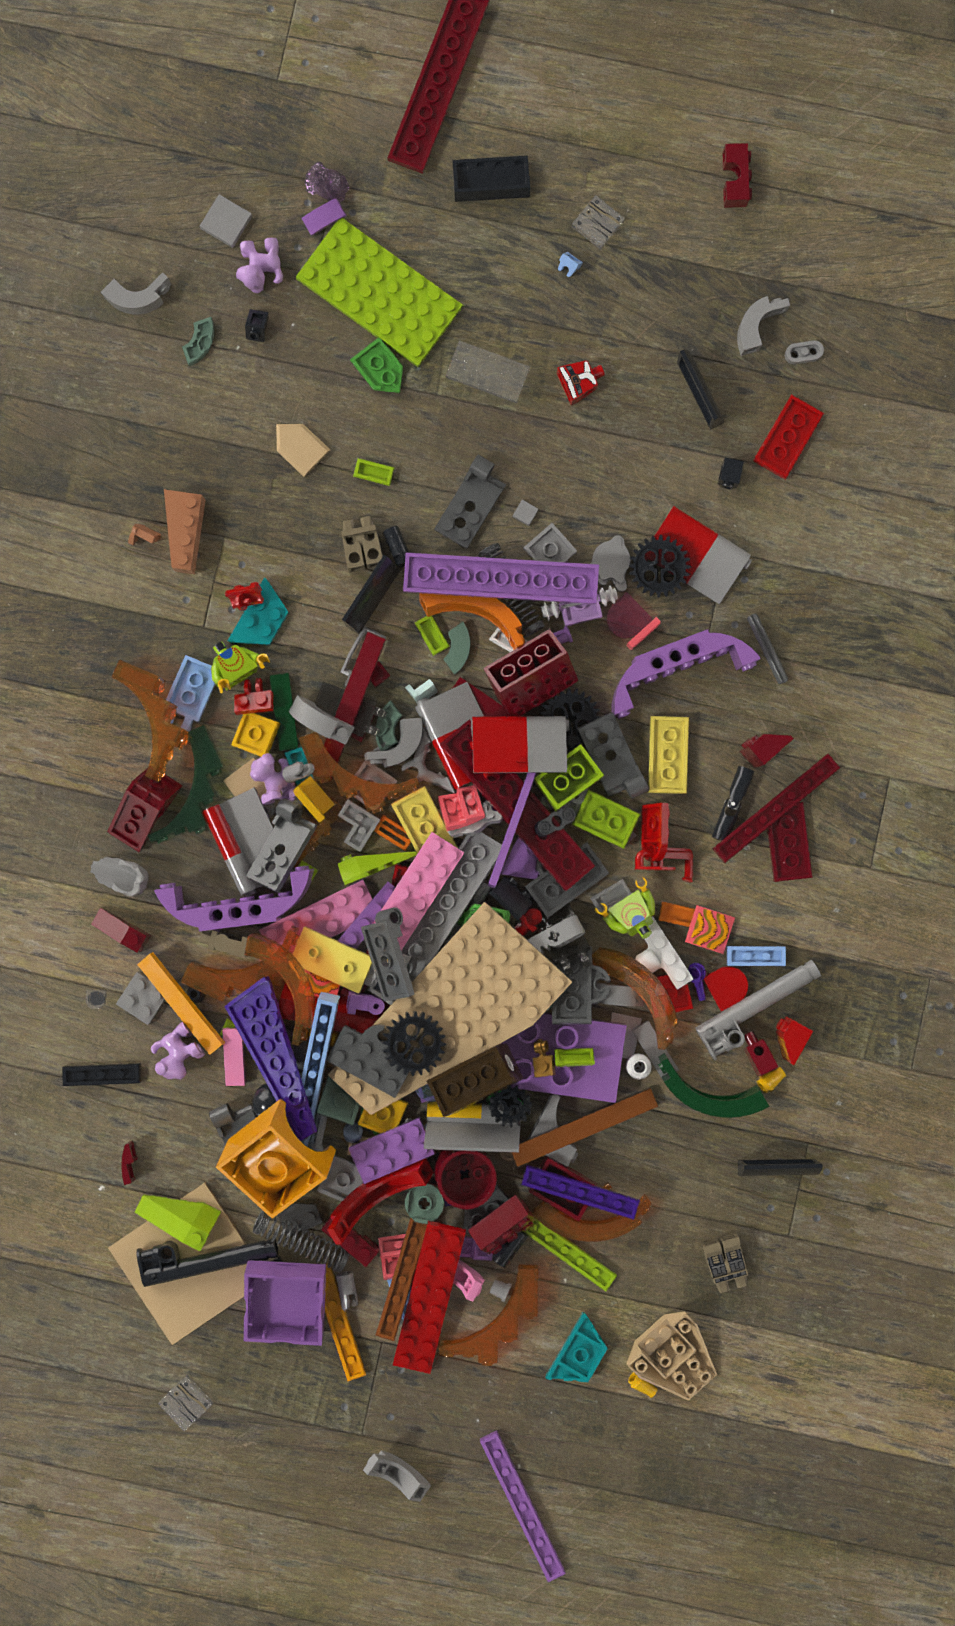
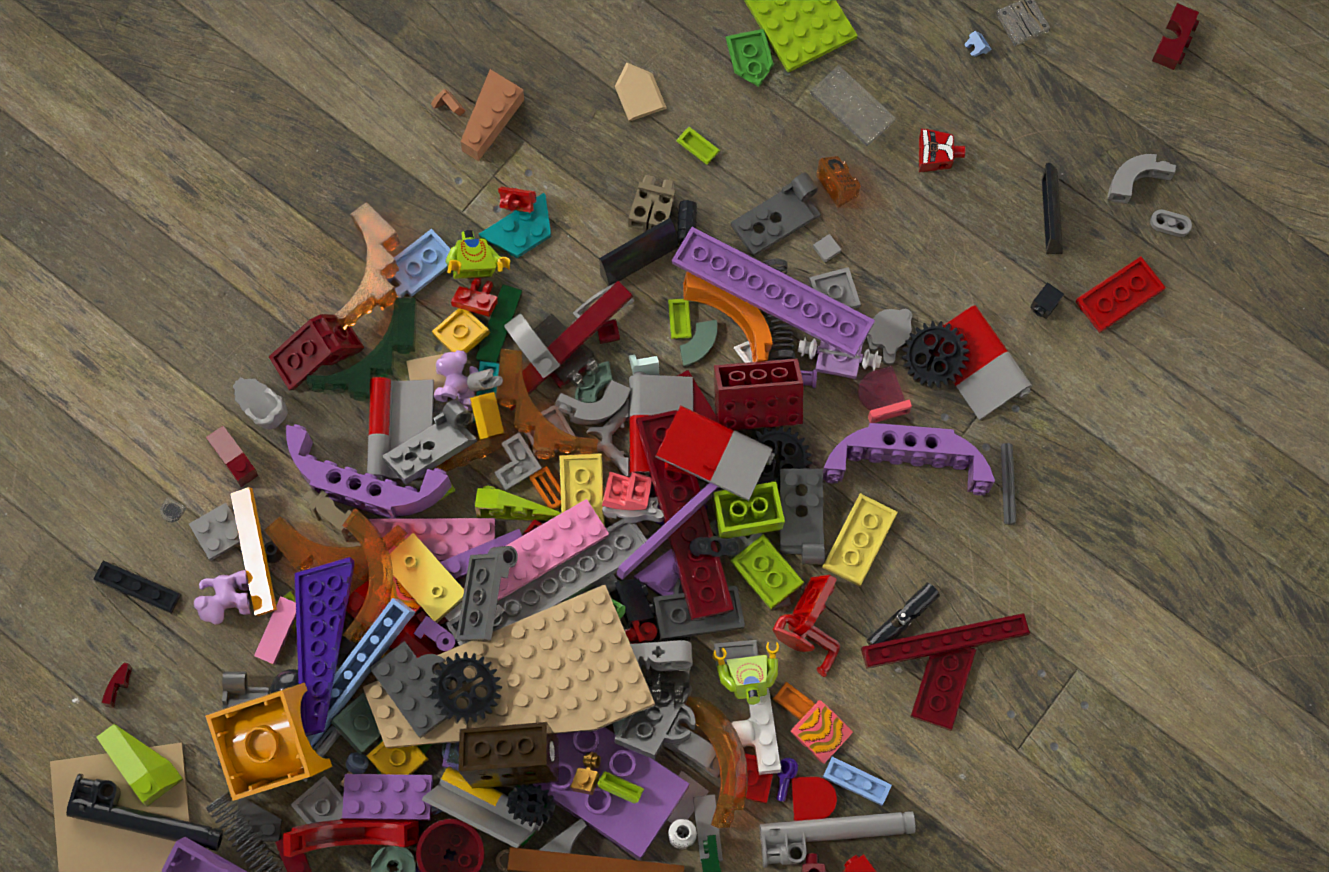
camera: 25 degrees right, 15 degrees down
(507, 448) = (837, 180): none -> clear orange slope
(763, 748) = (960, 570): dark red slope -> none

